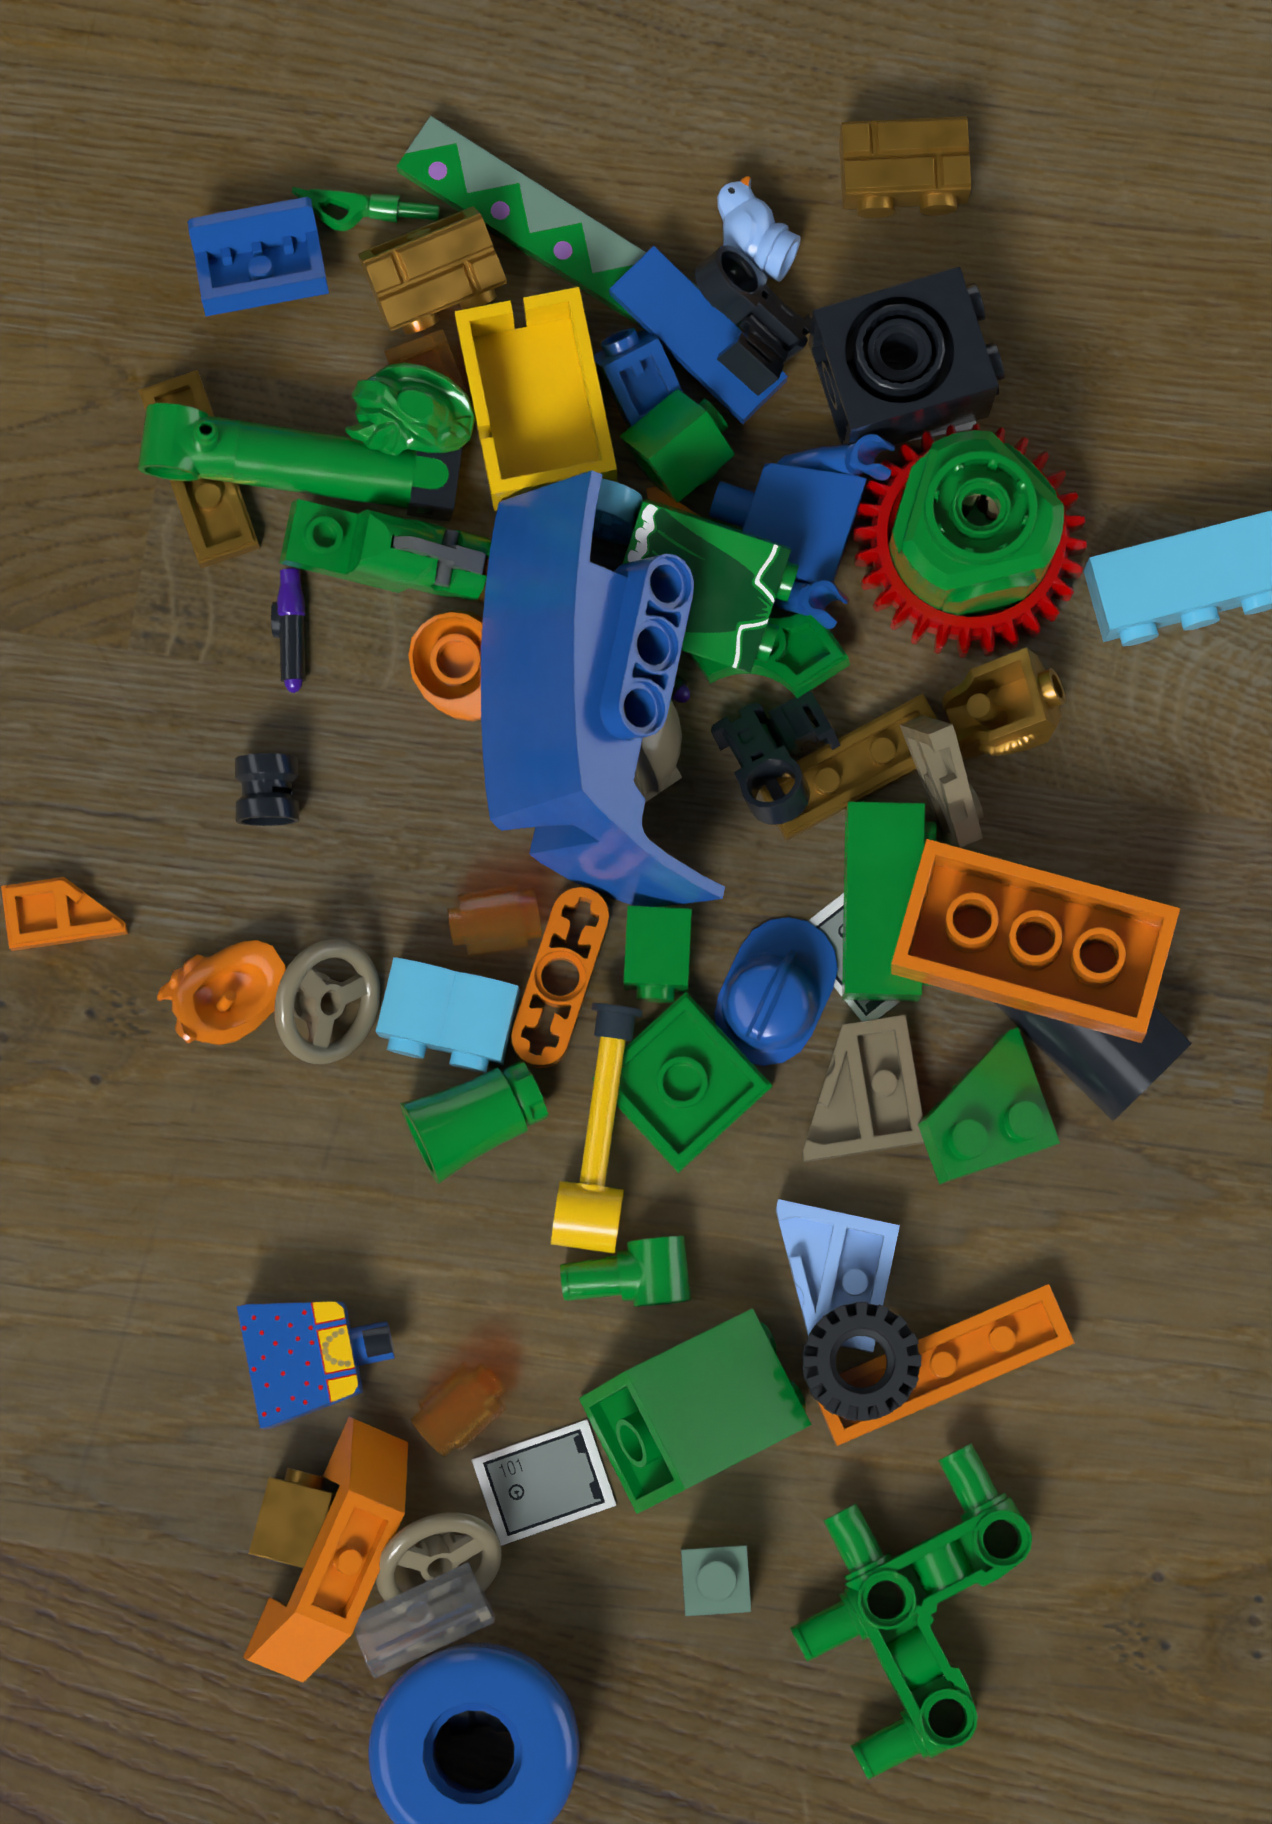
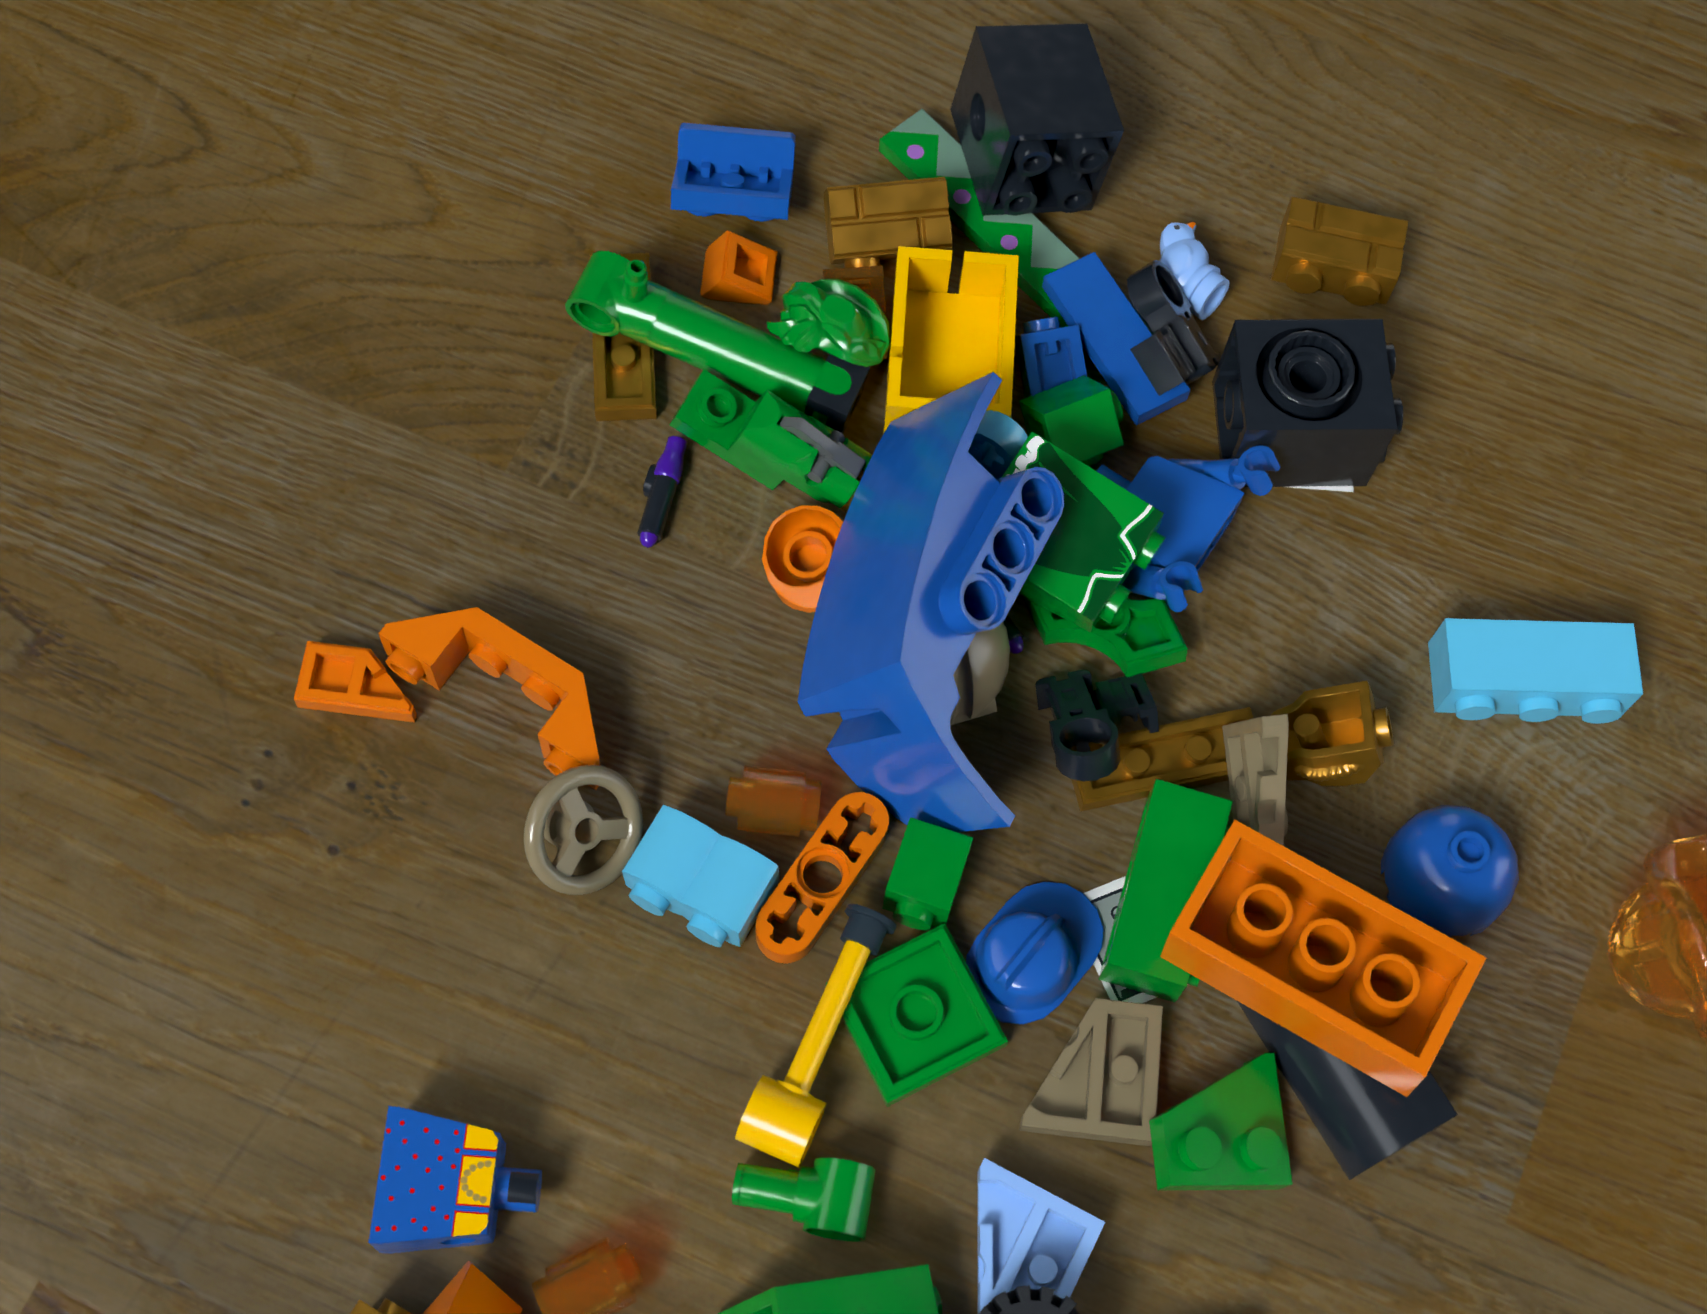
camera: 10 degrees right, 15 degrees down
(126, 859) = (437, 644): none -> orange slope
(224, 994) = (483, 800): orange hat -> none
(267, 789) = (591, 621): black wheel -> none
(294, 360) = (738, 270): none -> orange slope
(375, 206) = (836, 165): green hand -> none
(473, 1118) = (694, 986): green plant -> none
(555, 116) = (1035, 118): none -> black brick
(971, 541) = (1332, 572): green piece -> none
(1146, 805) = (1451, 869): none -> blue cylinder

